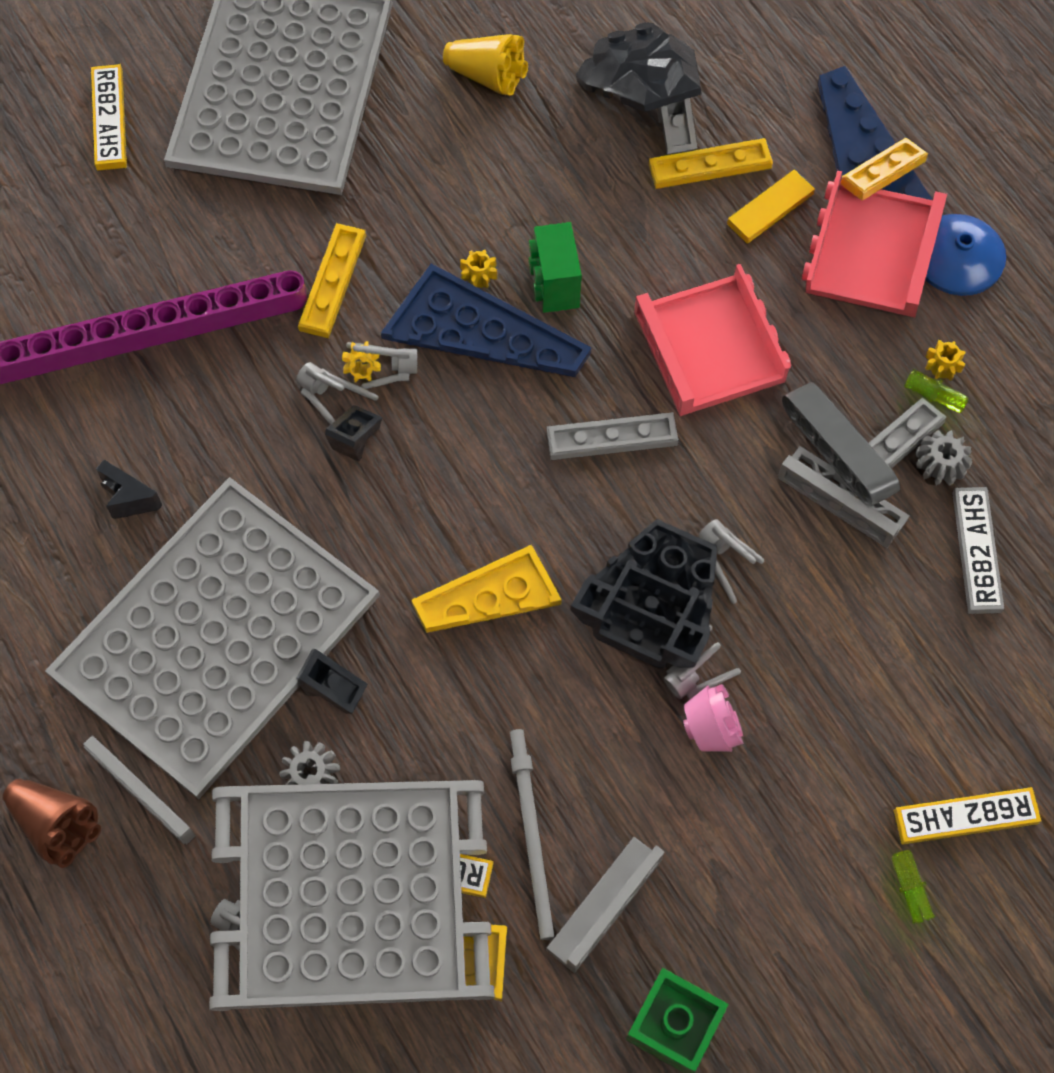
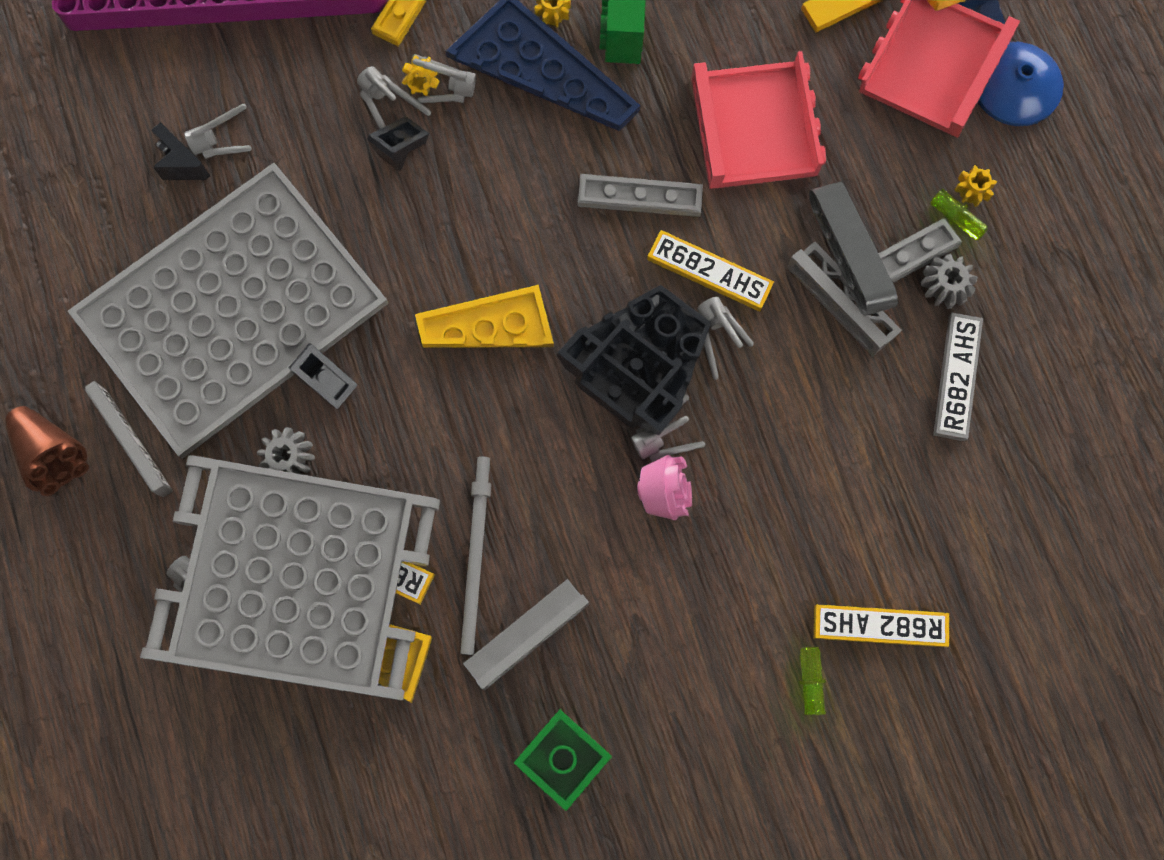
camera: 10 degrees right, 10 degrees up
(148, 468) = (202, 137): none -> light grey plant
(702, 496) = (710, 270): none -> tile

